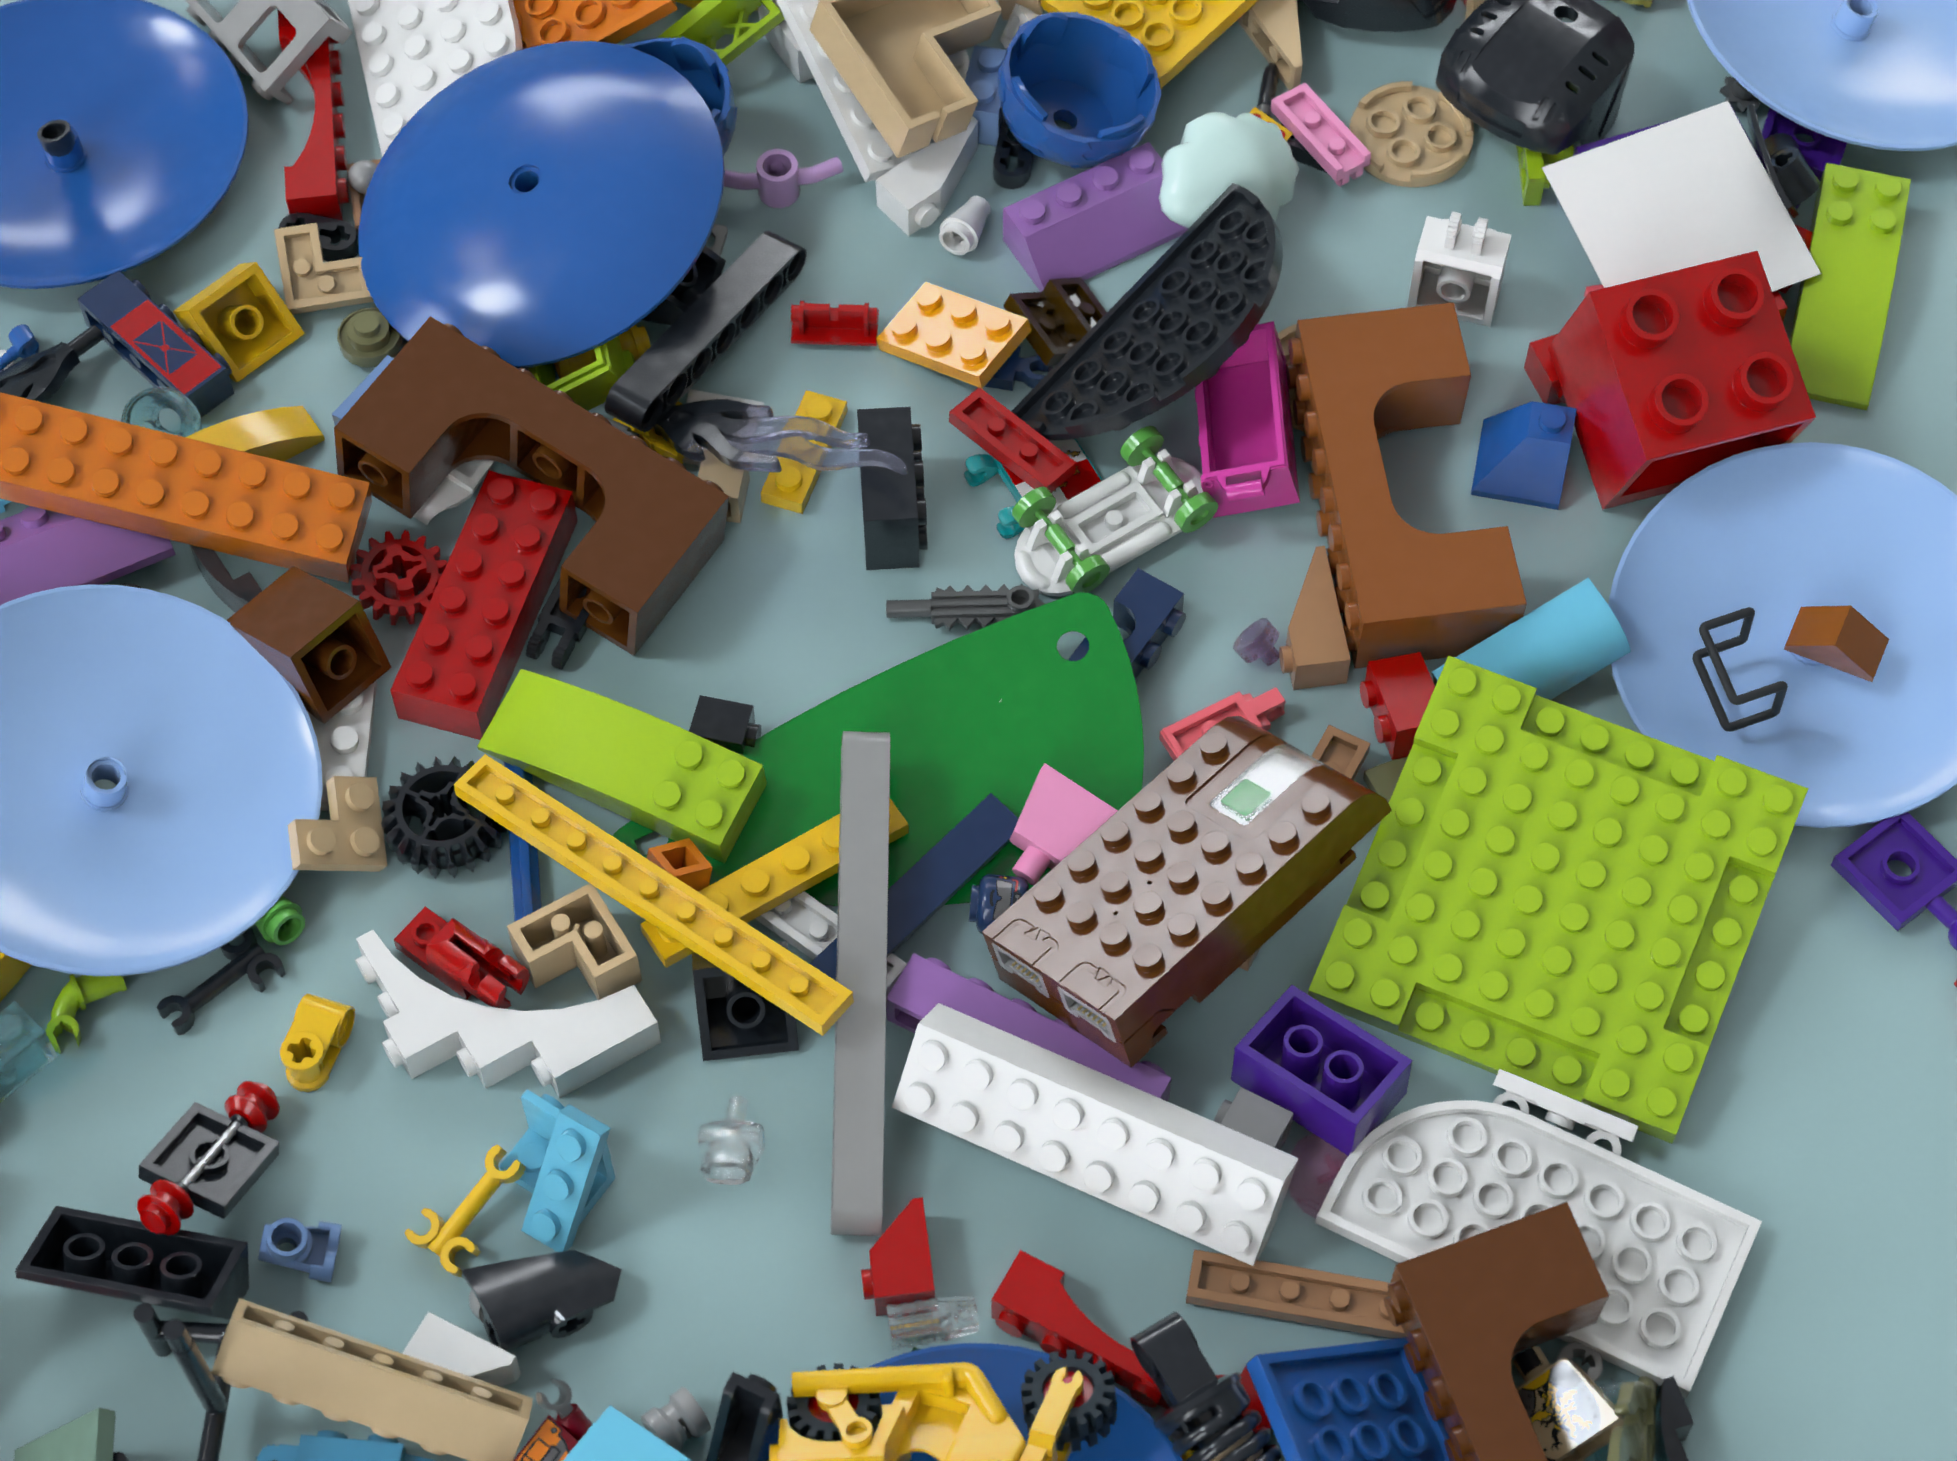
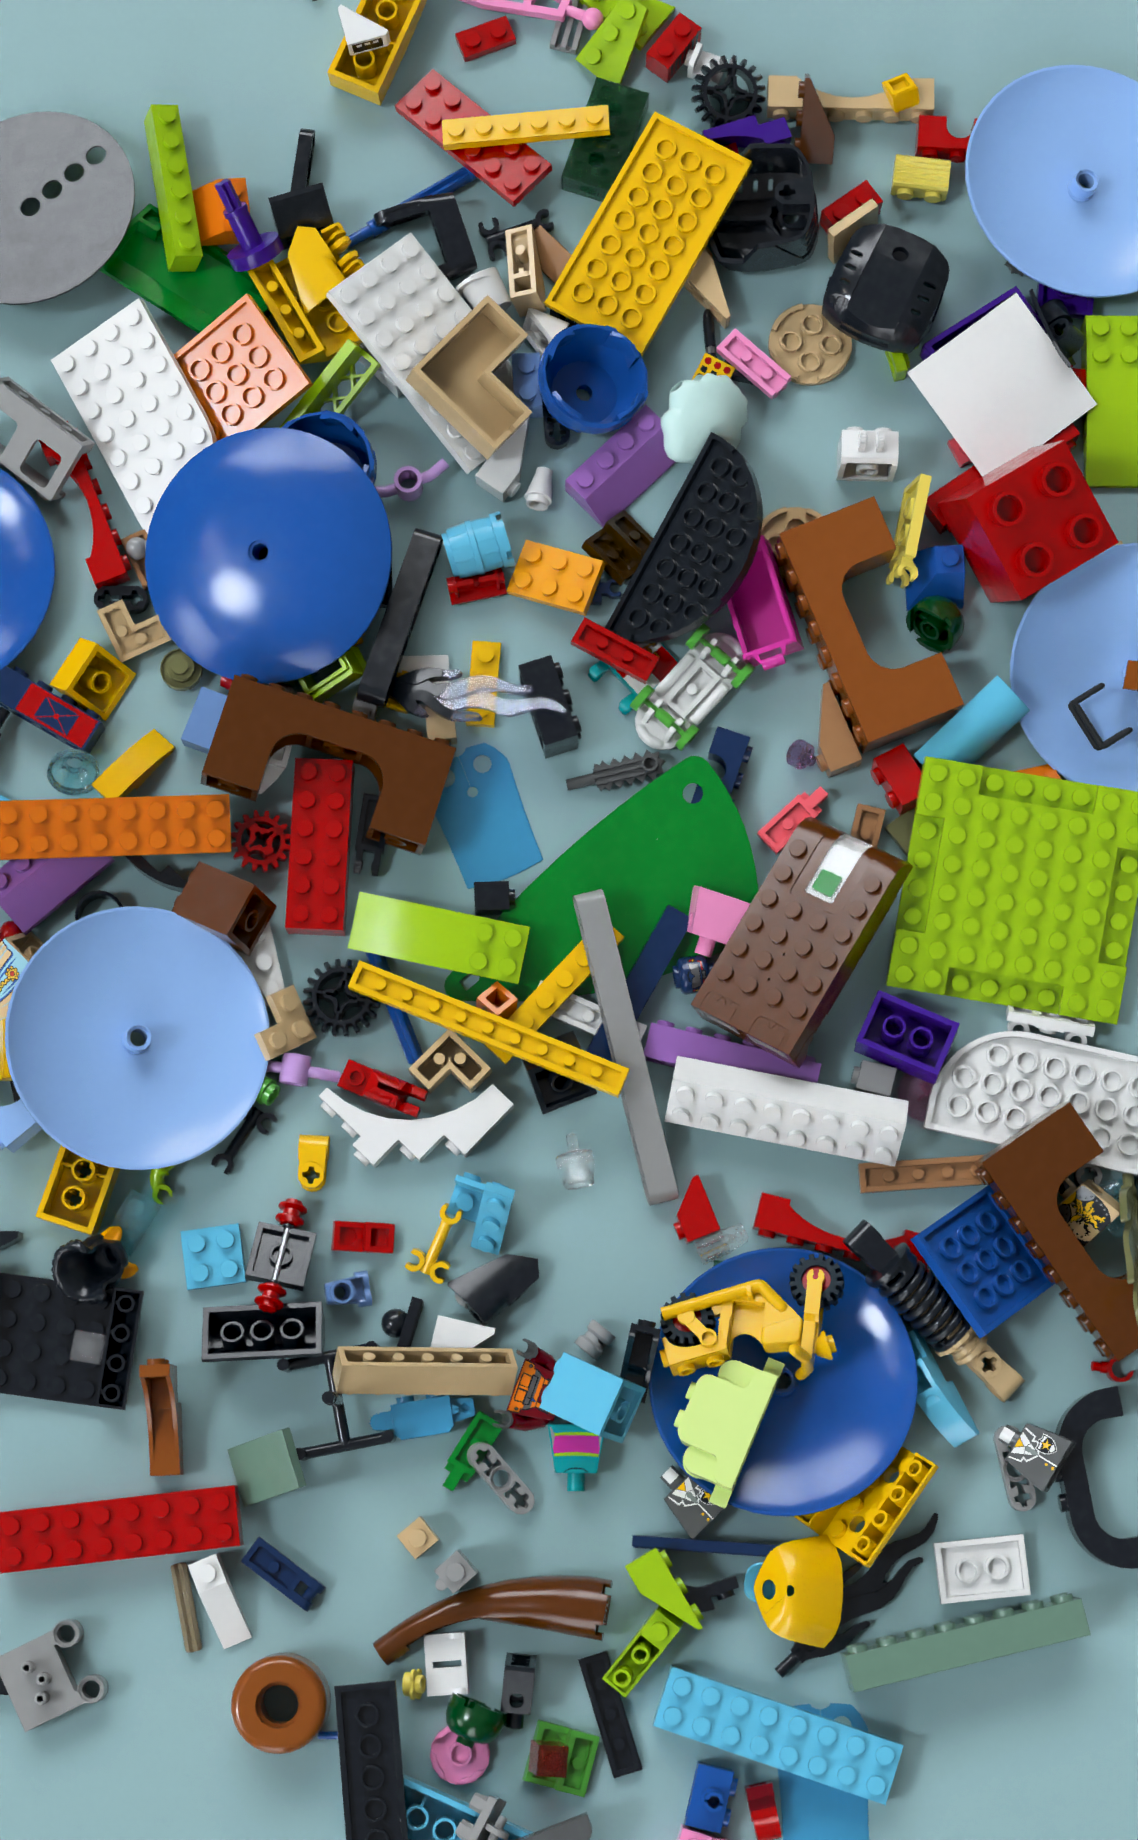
camera: 15 degrees left, 20 degrees up
(104, 1145) = (213, 1256): none -> medium azure plate
(340, 900) = (297, 1068): none -> lavender piece
(354, 1175) = (363, 1237): none -> red slope
(375, 1318) = (400, 1324): none -> black tile
(756, 644) = (489, 830): none -> dark azure piece
(851, 266) = (478, 546): none -> medium azure piece
(1482, 407) = (909, 530): none -> light yellow tile
(1512, 498) = (936, 622): none -> dark green cylinder

